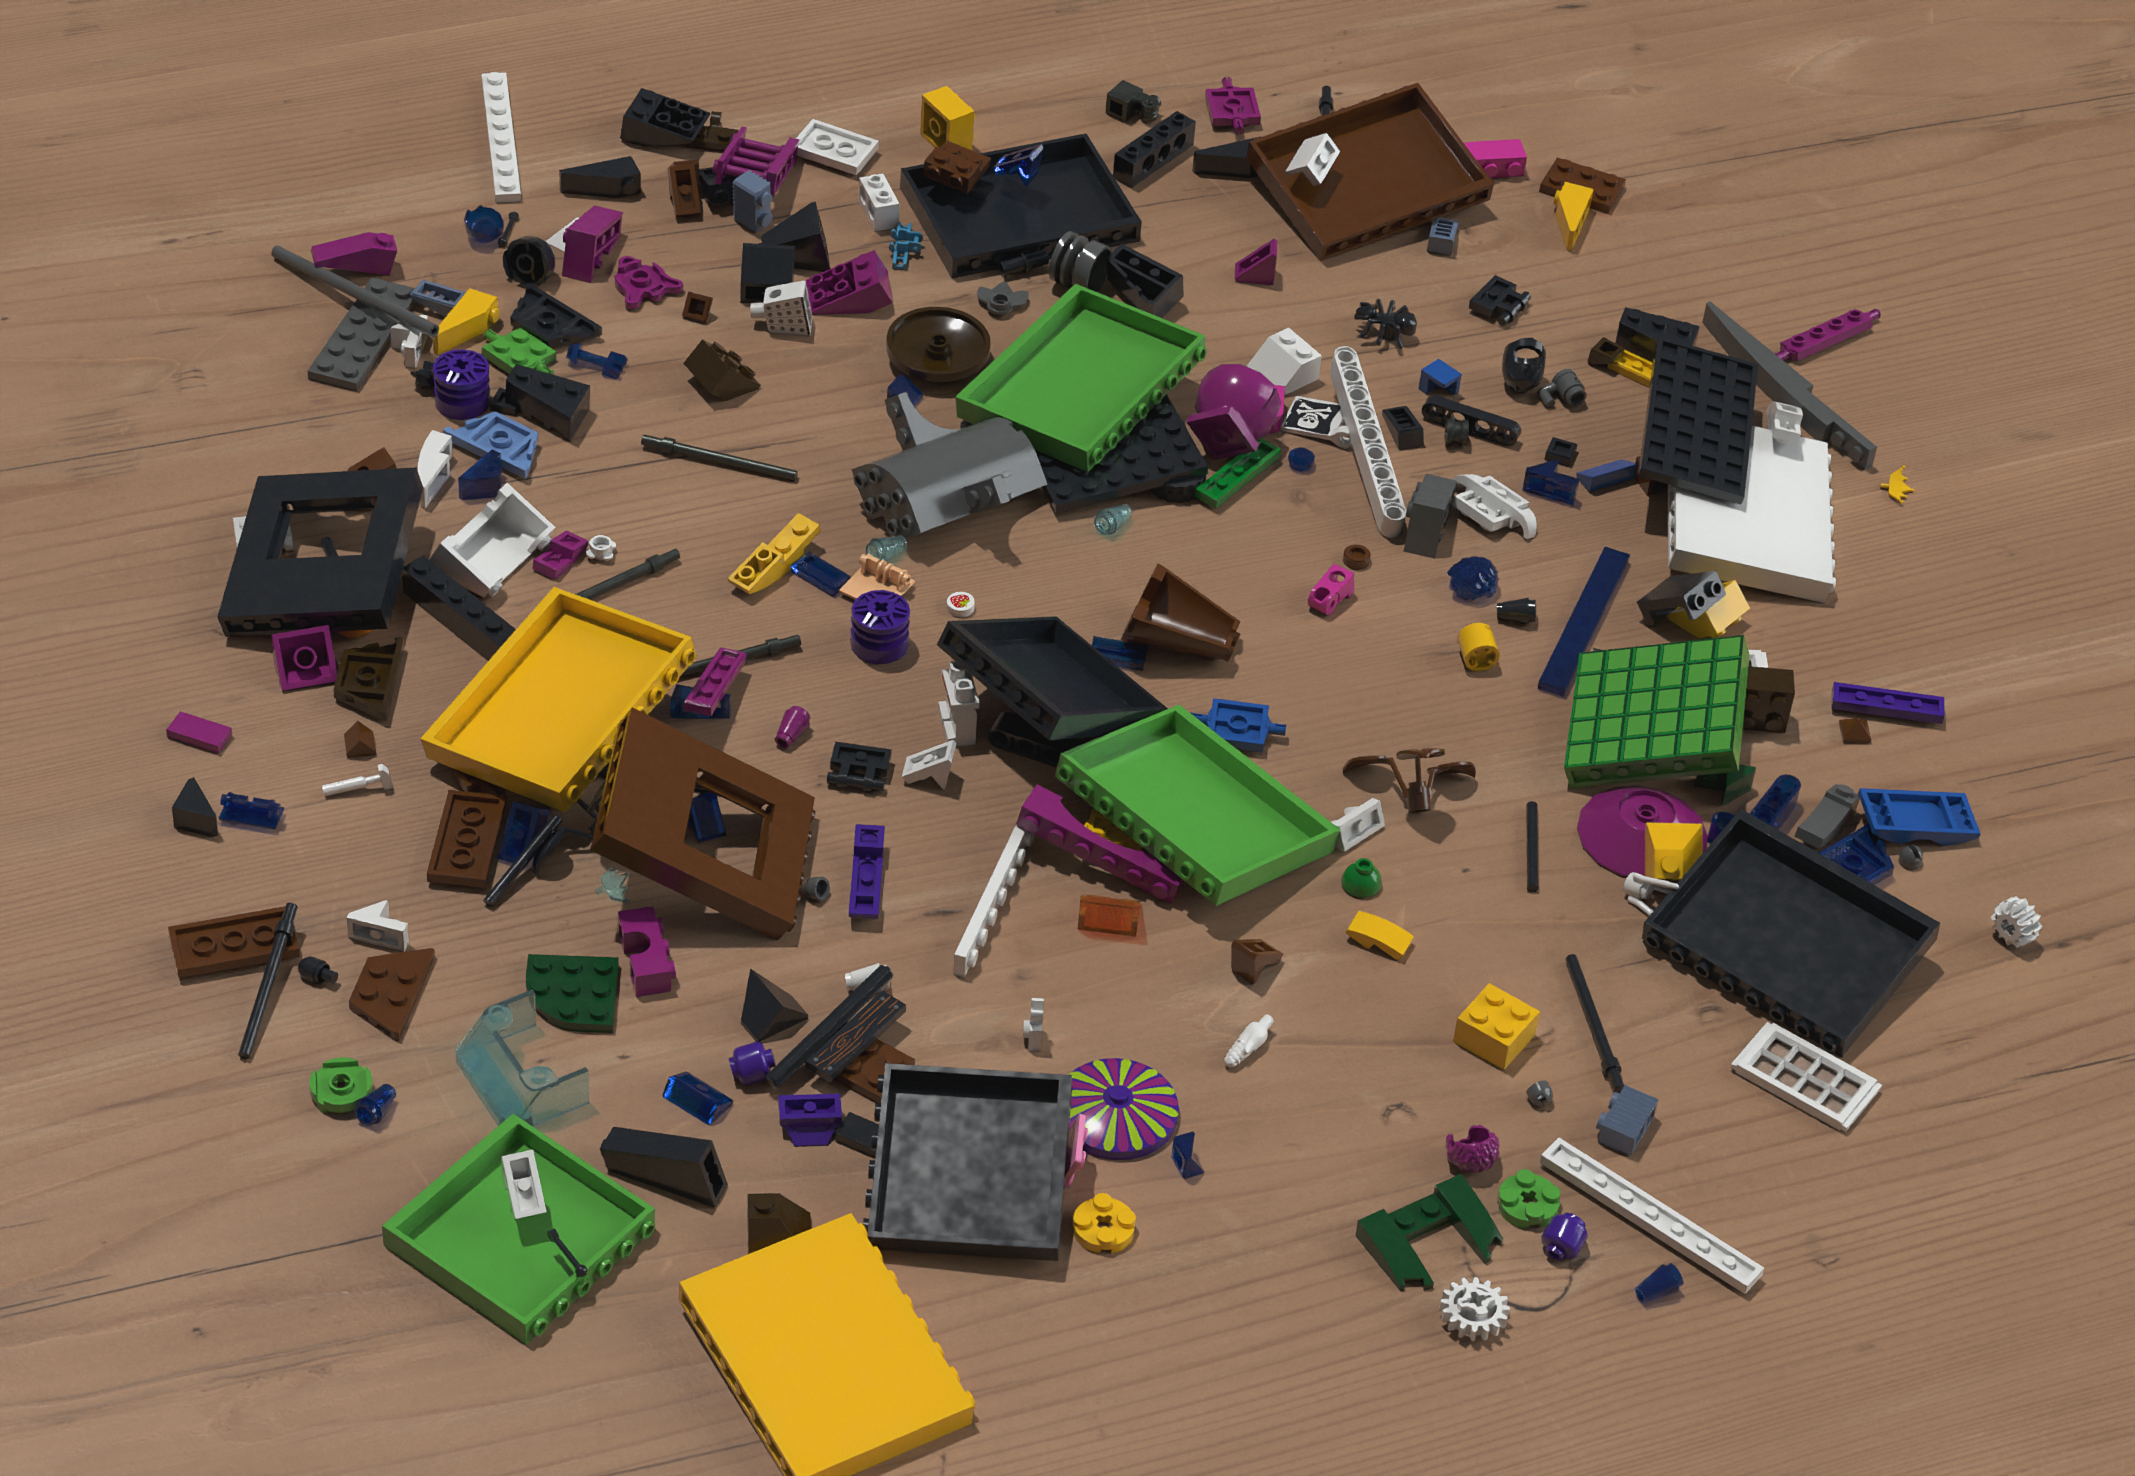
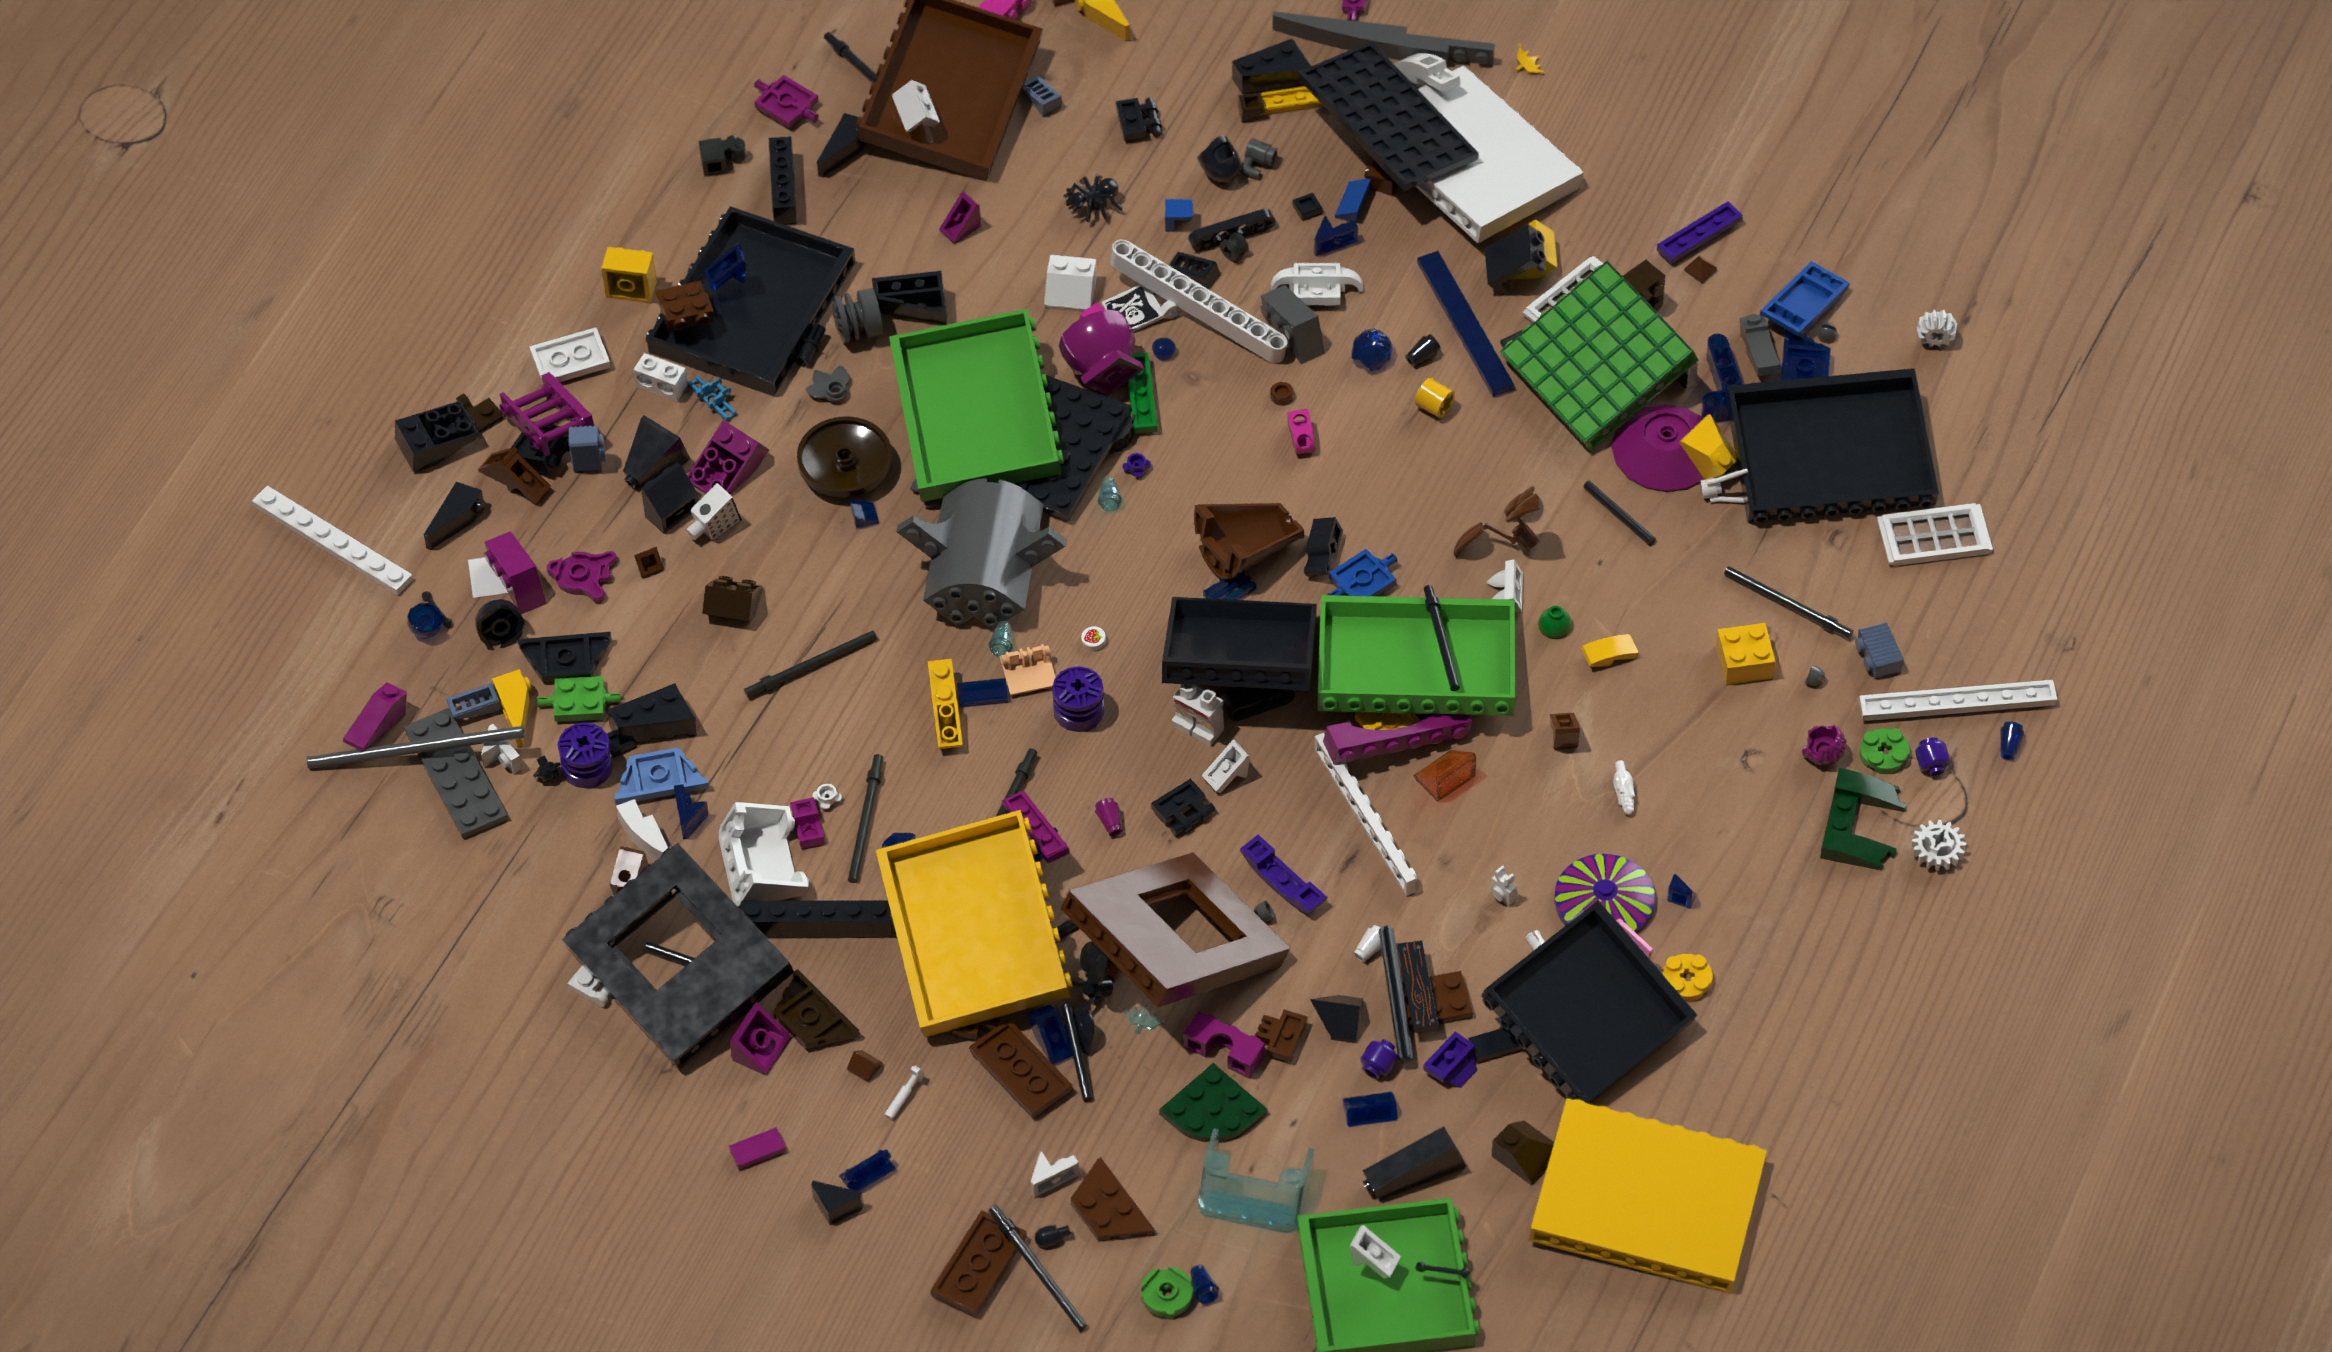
camera: 40 degrees left, 10 degrees up
(611, 366) = (648, 653): clear blue hinge -> none
(703, 984) = (1282, 1034): none -> reddish brown hinge
(1165, 516) = (1136, 459): none -> dark purple plate
(1235, 676) = (1322, 545): none -> black piece
(1257, 779) = (1433, 606): none -> black bar

